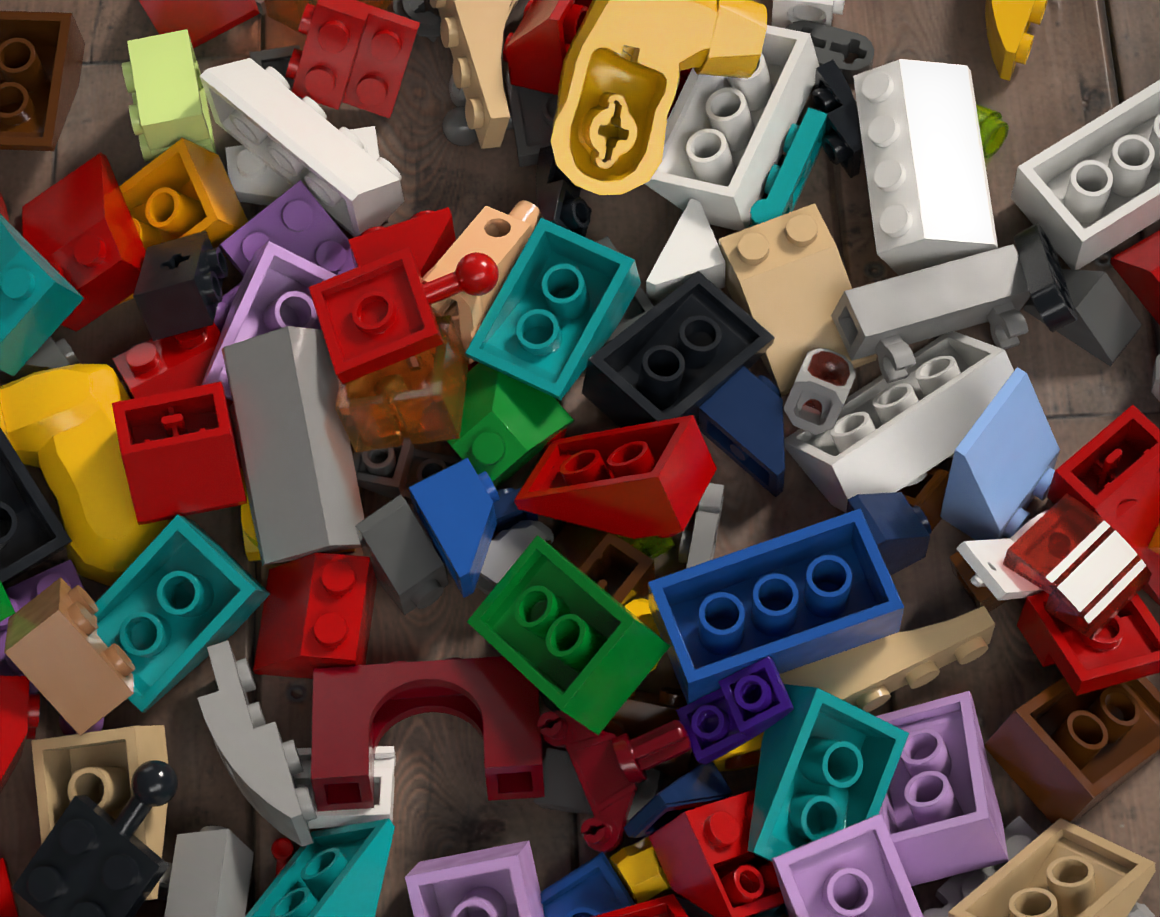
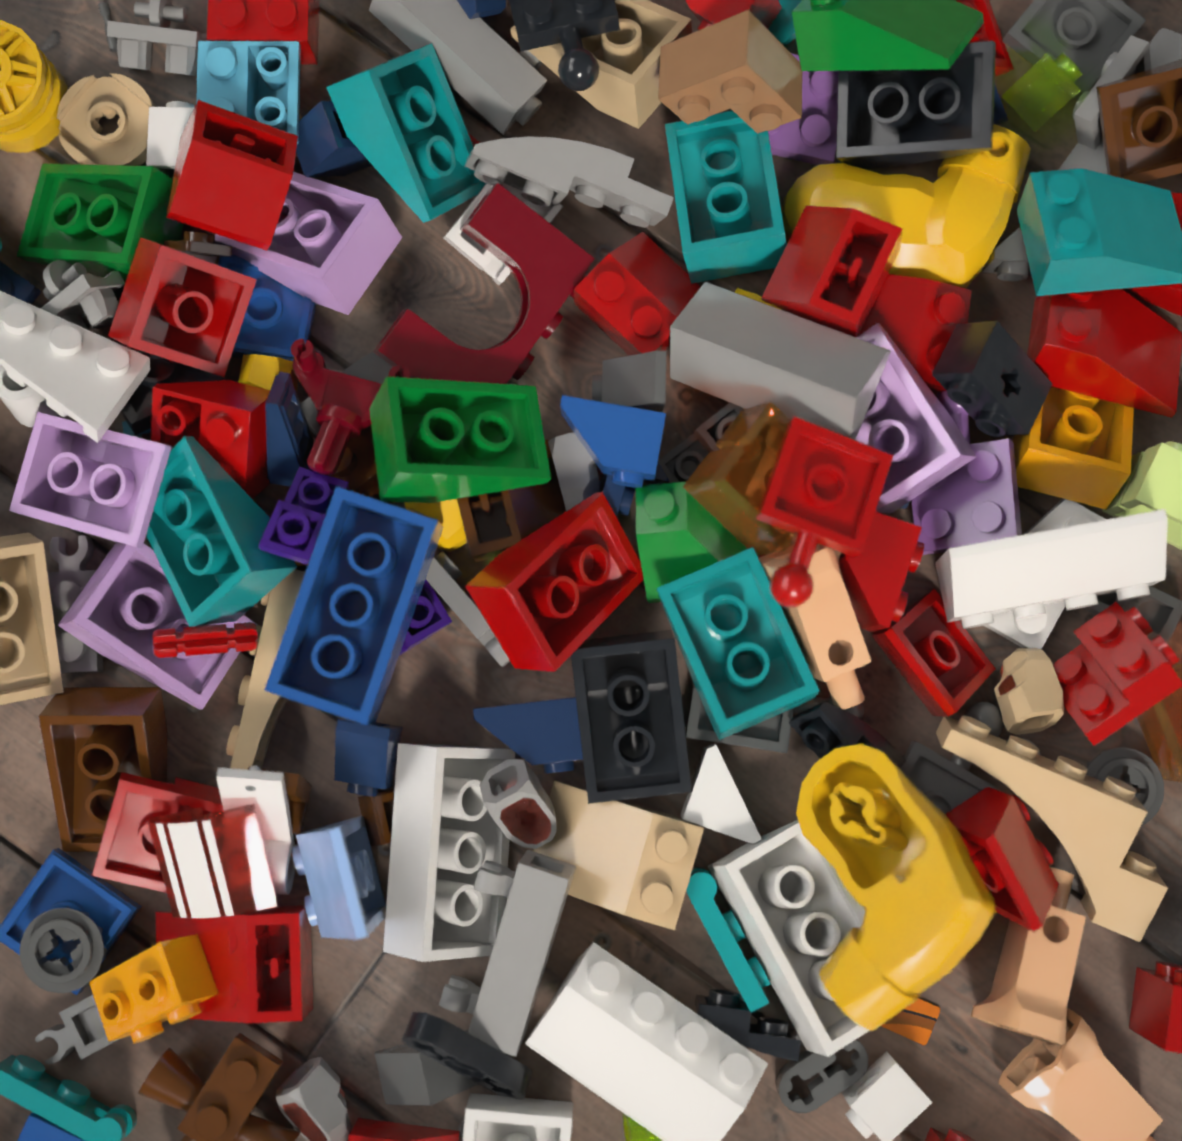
camera: 125 degrees right, 20 degrees up
(409, 108) = (1029, 692): none -> tan rock
(444, 176) = (935, 655): none -> red slope
(903, 713) = (205, 640): none -> red axle

